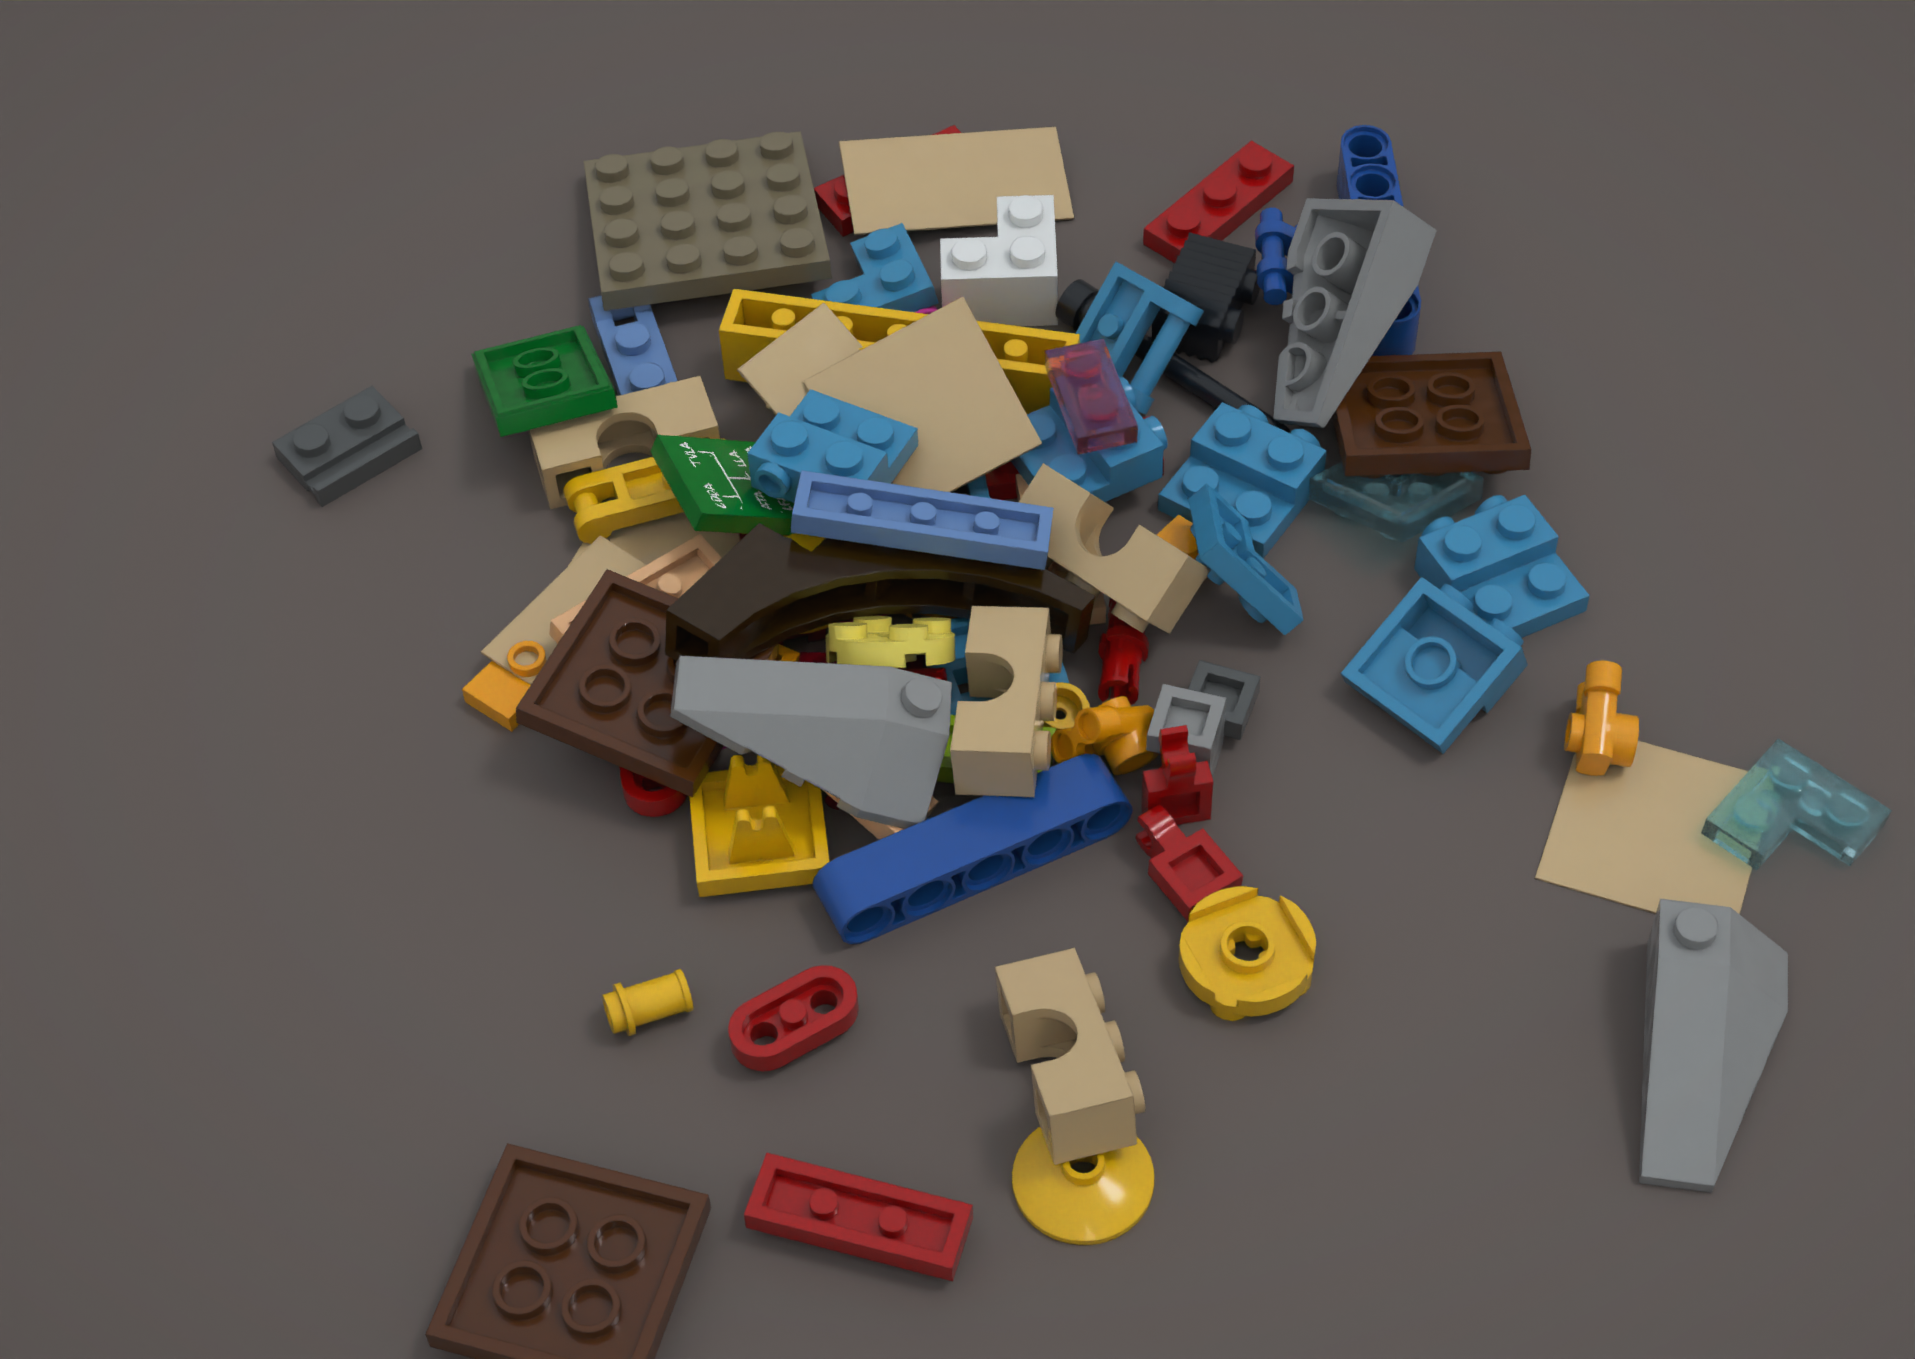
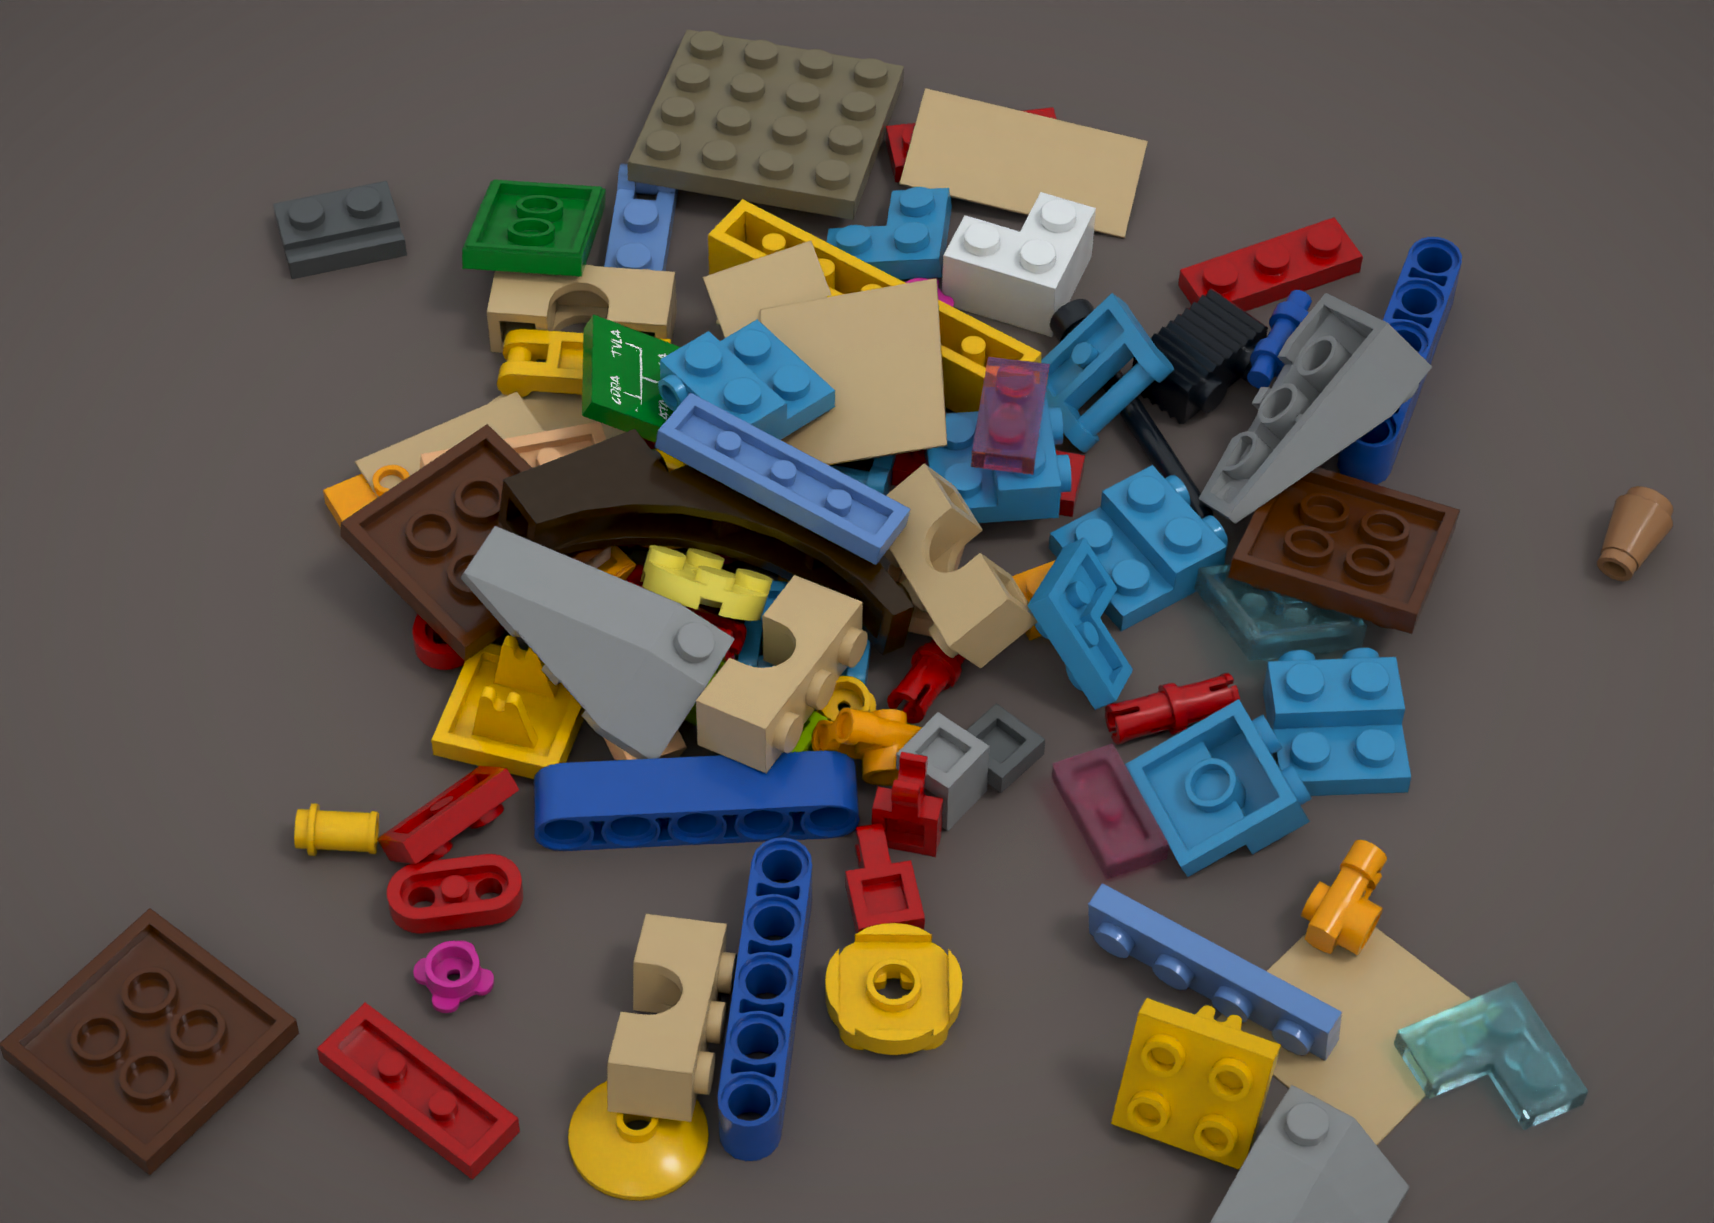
camera: 20 degrees right, 0 degrees up
(748, 947) = (467, 803): none -> red plate
(831, 1077) = (450, 959): none -> dark pink plate
(1145, 1028) = (765, 1023): none -> blue beam
(1349, 720) = (1110, 811): none -> clear pink plate
(1350, 610) = (1169, 708): none -> red pin
(1522, 827) = (1231, 983): none -> medium blue plate
(1573, 930) = (1195, 1082): none -> yellow plate
(1653, 320) = (1634, 530): none -> medium nougat cone

